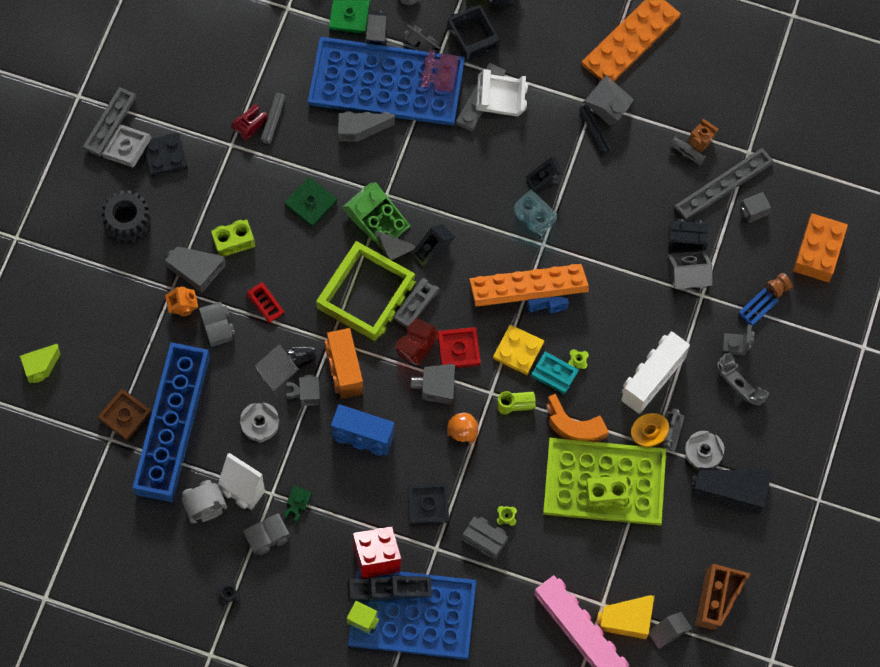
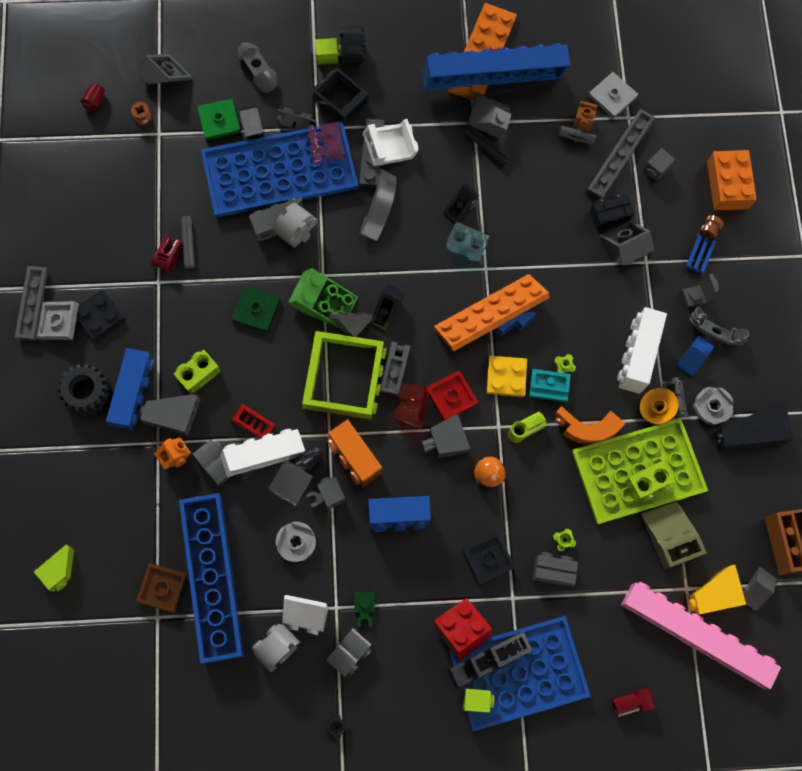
camera: 25 degrees left, 5 degrees up
(166, 231) = (129, 389): none -> blue brick
(261, 330) = (261, 452): none -> white brick
(377, 137) = (294, 225): none -> light grey brick
(466, 149) = (380, 206): none -> dark grey slope
(609, 550) = (673, 535): none -> olive slope
(632, 57) = (495, 66): none -> blue brick
(708, 398) = (695, 356): none -> blue slope
(742, 125) = (613, 95): none -> light grey plate

